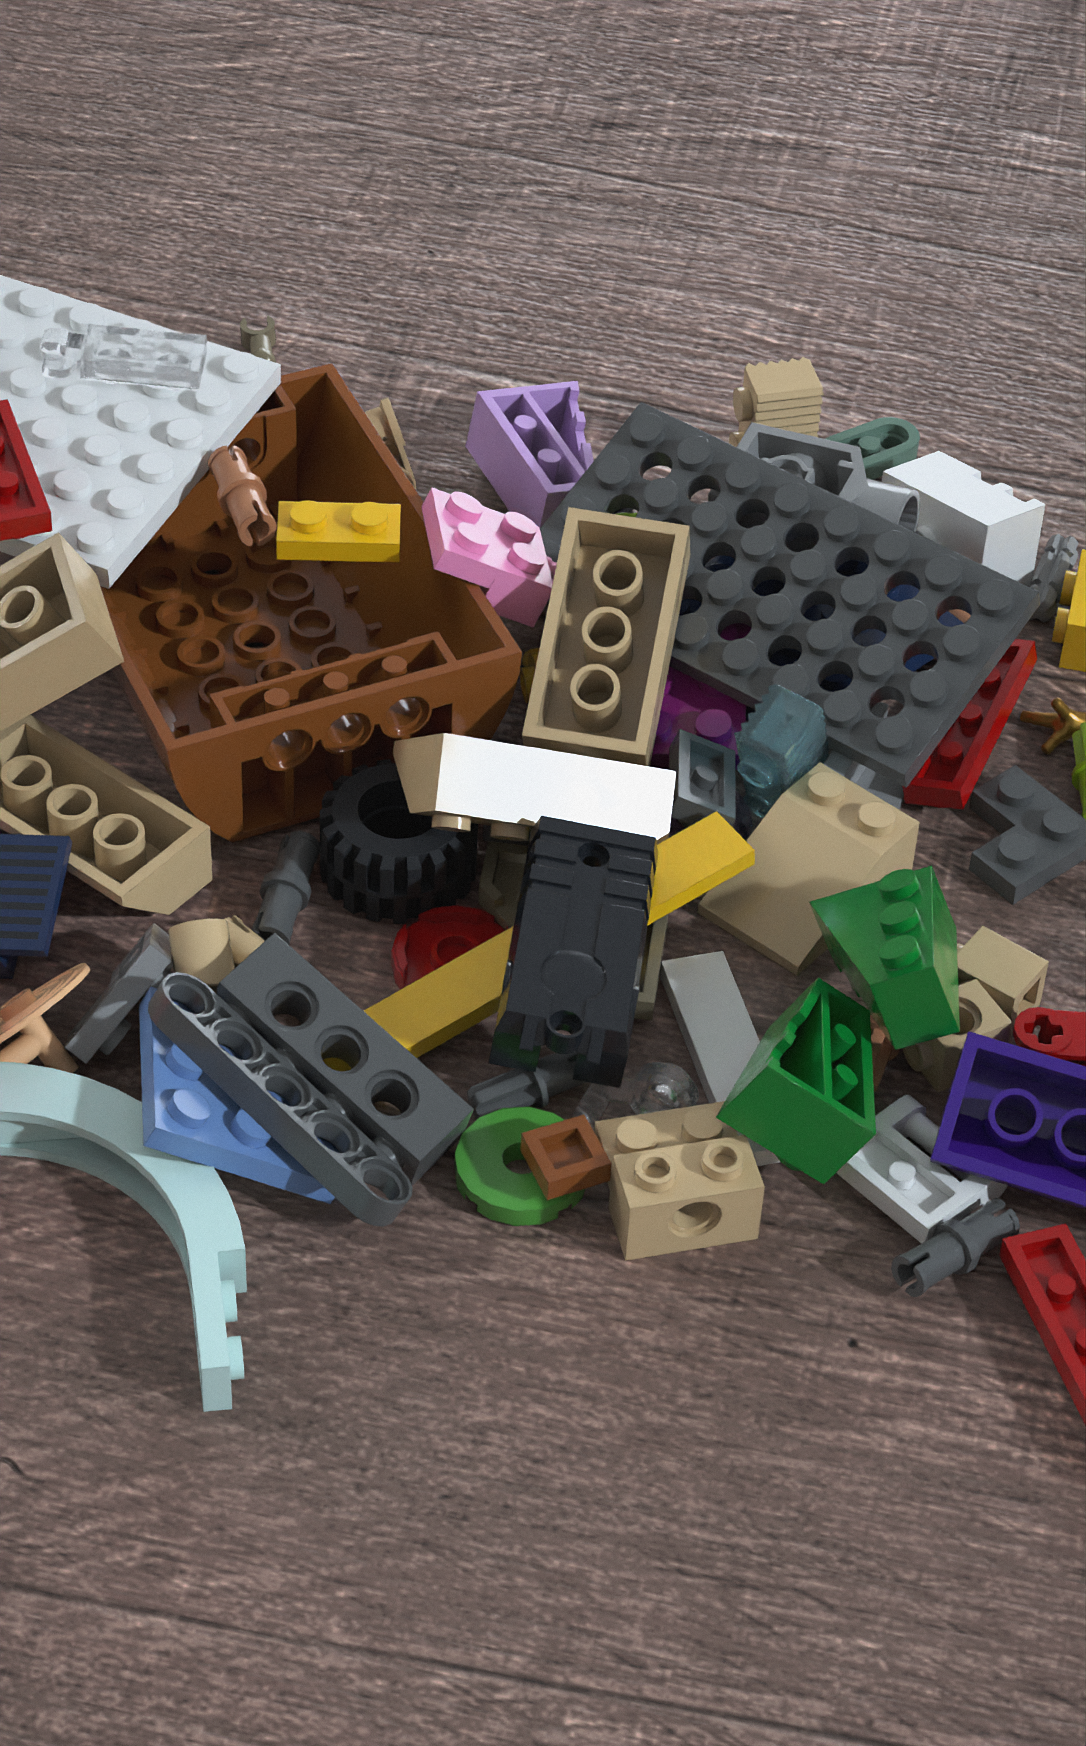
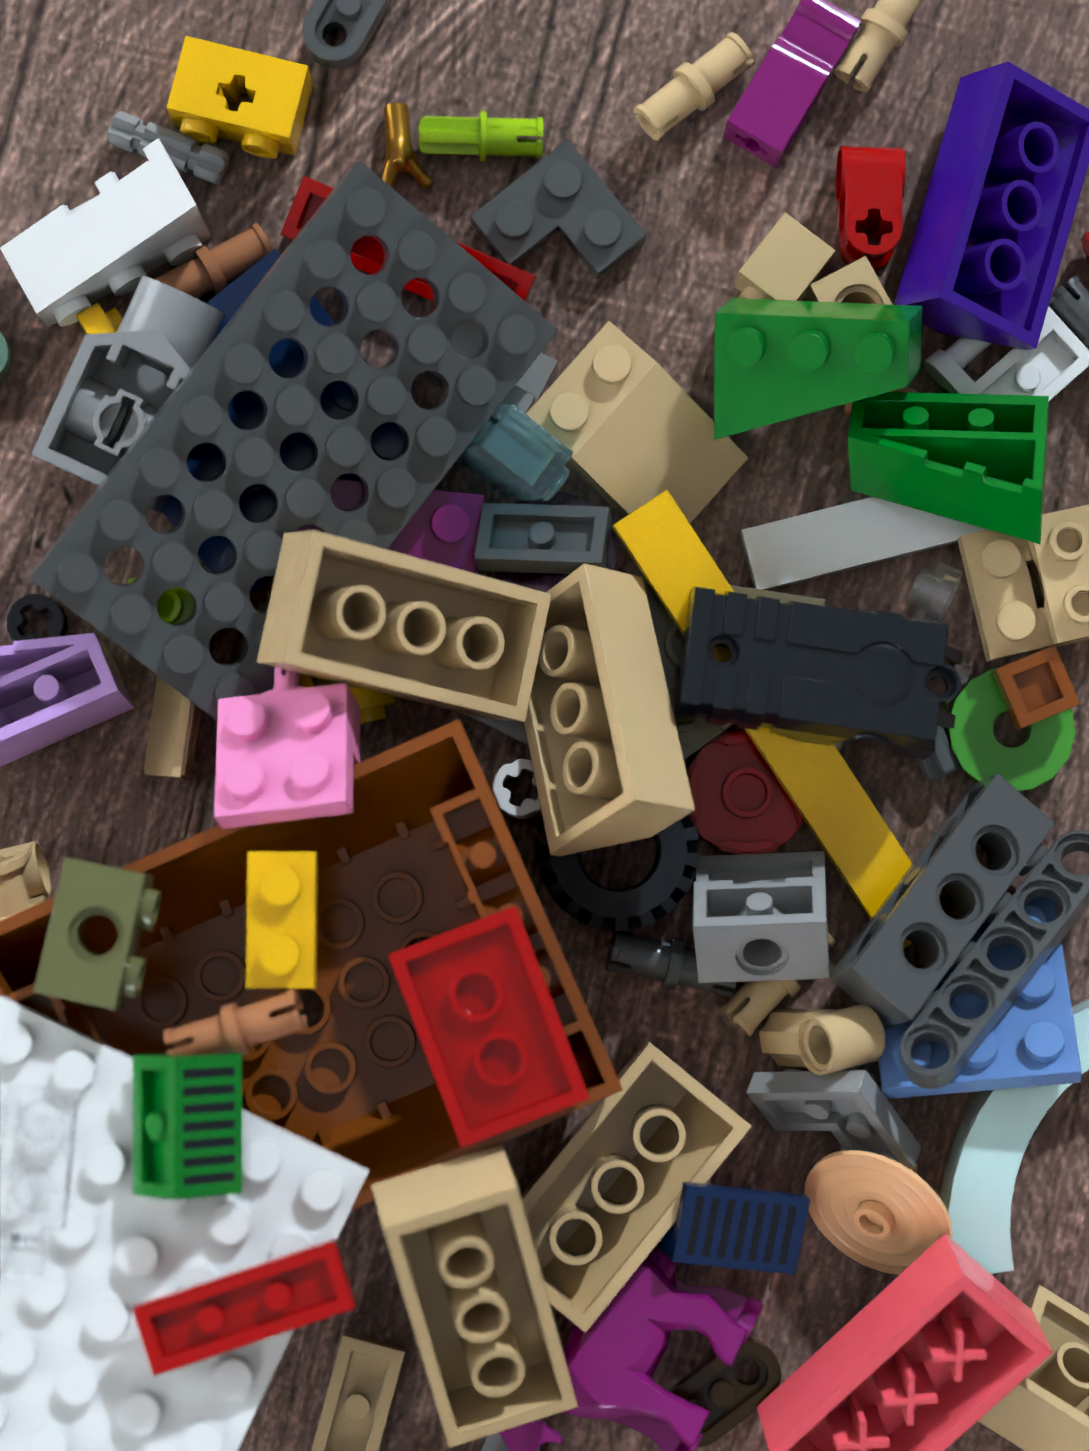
camera: 90 degrees left, 40 degrees up
(161, 445) = (187, 1125): none -> green panel
(234, 646) = (488, 1026): none -> red plate
(322, 913) = (761, 917): none -> light grey brick
(331, 413) = (67, 963): none -> olive brick

